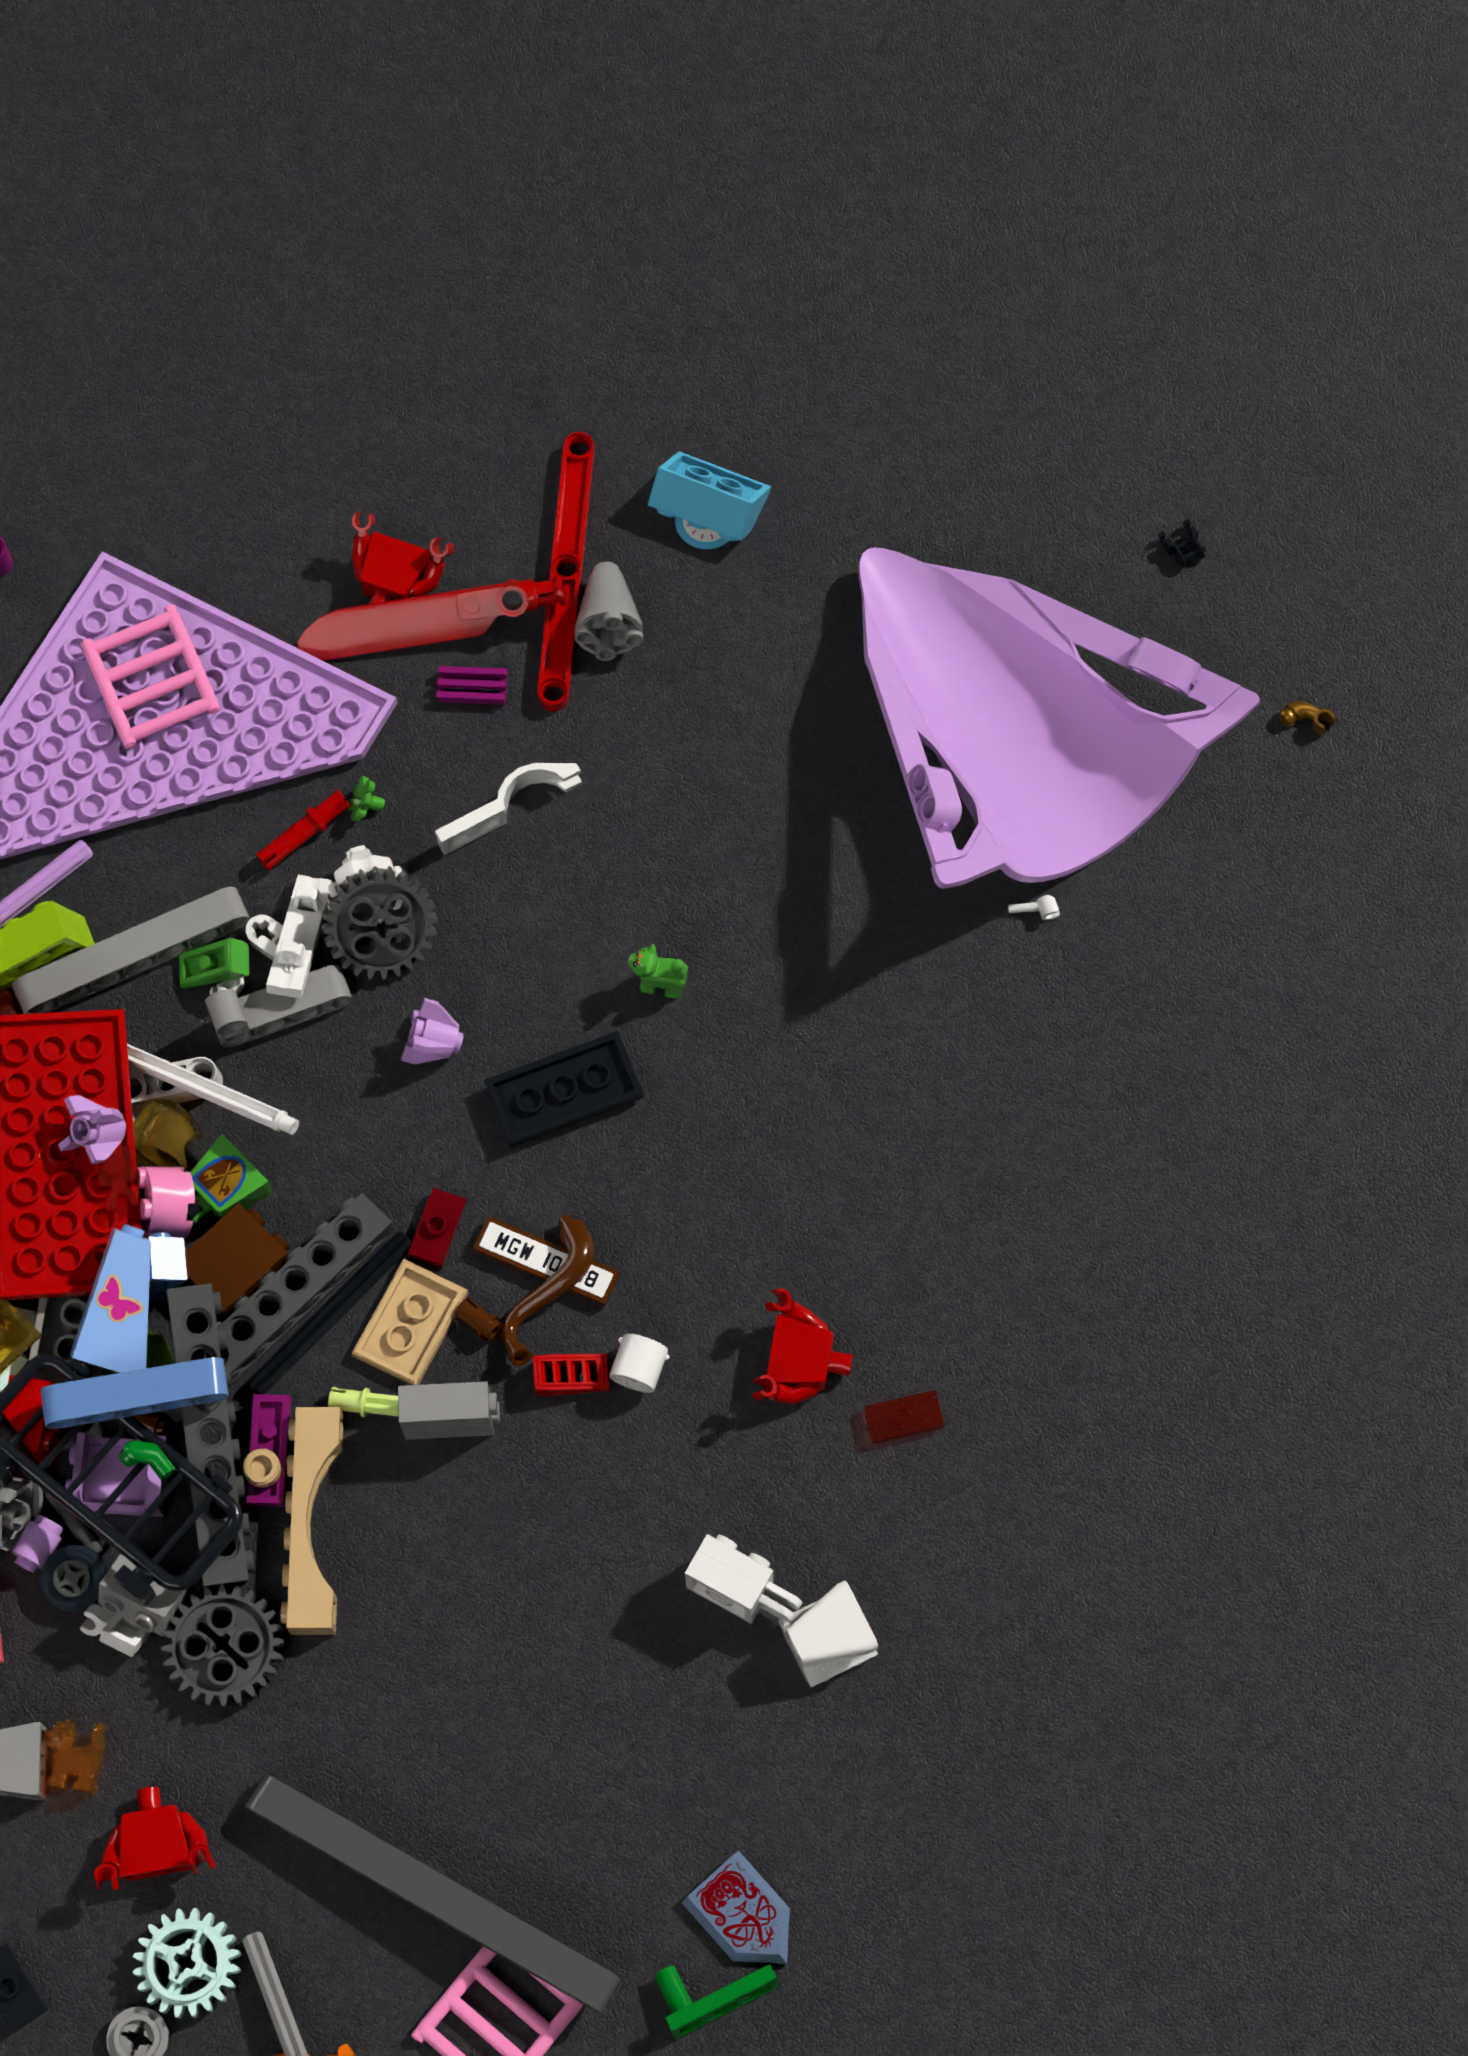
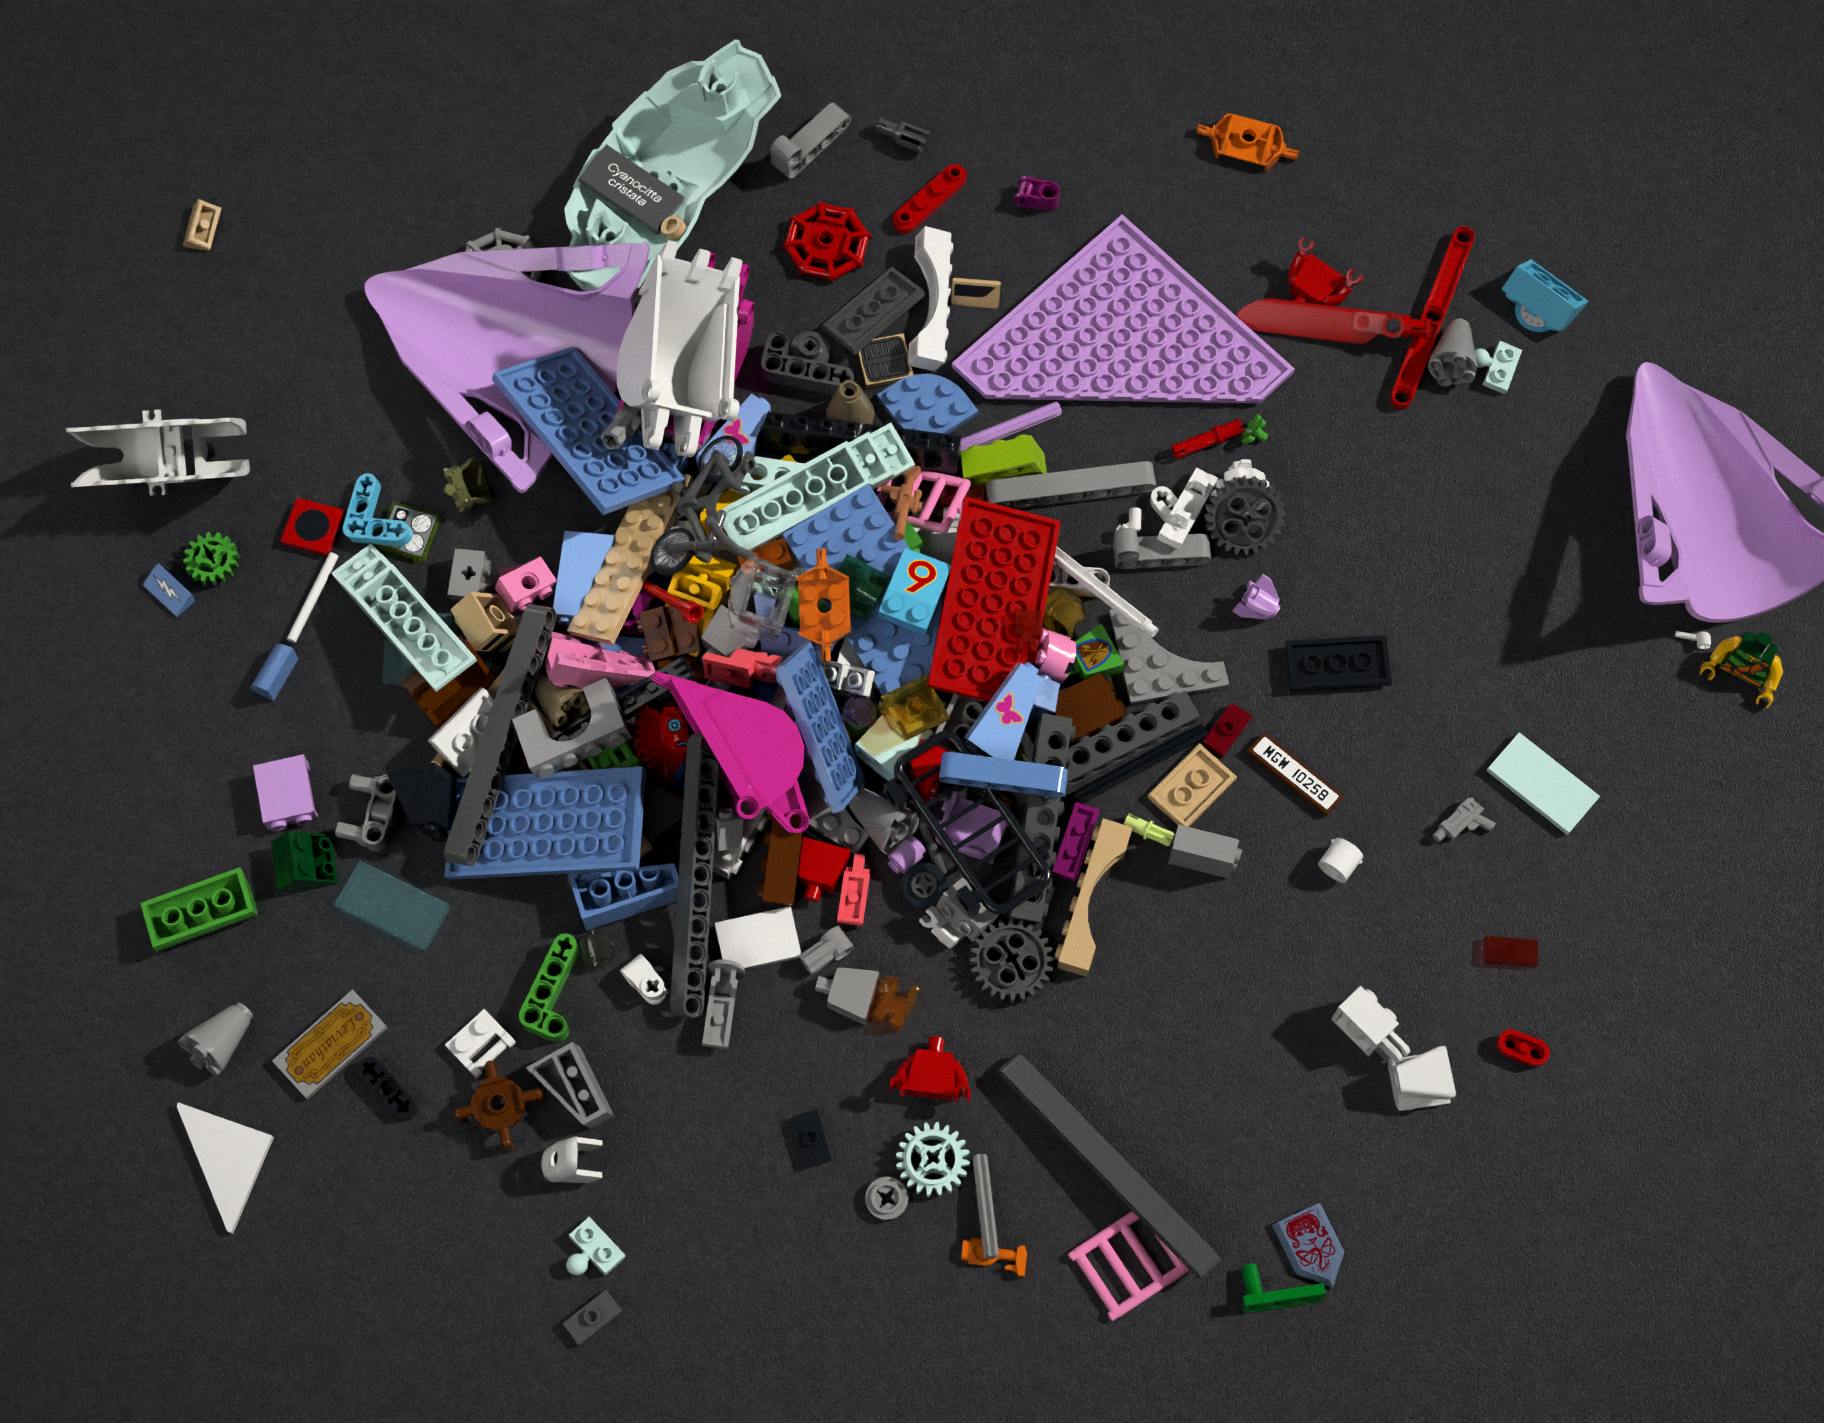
camera: 15 degrees right, 0 degrees up
(95, 1128) = (1022, 592): lavender brick -> none
(105, 678) = (1159, 292): bright pink bar -> none
(149, 1453) = (1001, 817): green arm -> none
(214, 963) = (1124, 509): bright green slope -> none
(262, 1468) = (1069, 851): tan tile -> none
(275, 405) = (1264, 150): none -> orange plate
(318, 1177) = (1154, 672): none -> light grey plate
(461, 675) = (1349, 372): magenta tile -> none
(483, 1323) = (1239, 798): reddish brown pin -> none
(494, 813) = (1339, 466): white piece -> none
(556, 1361) = (1280, 860): red slope -> none
(580, 1256) = (1316, 782): reddish brown animal -> none
(658, 972) = (1425, 604): bright green animal -> none
(676, 611) = (1500, 365): none -> light aqua plate
(792, 1248) = (1464, 816): none -> light grey piece
(799, 1354) = (1451, 887): red torso -> none
(886, 1170) = (1543, 783): none -> light aqua tile
(955, 1546) = (1522, 1047): none -> red plate
(1117, 916) = (1750, 659): none -> torso

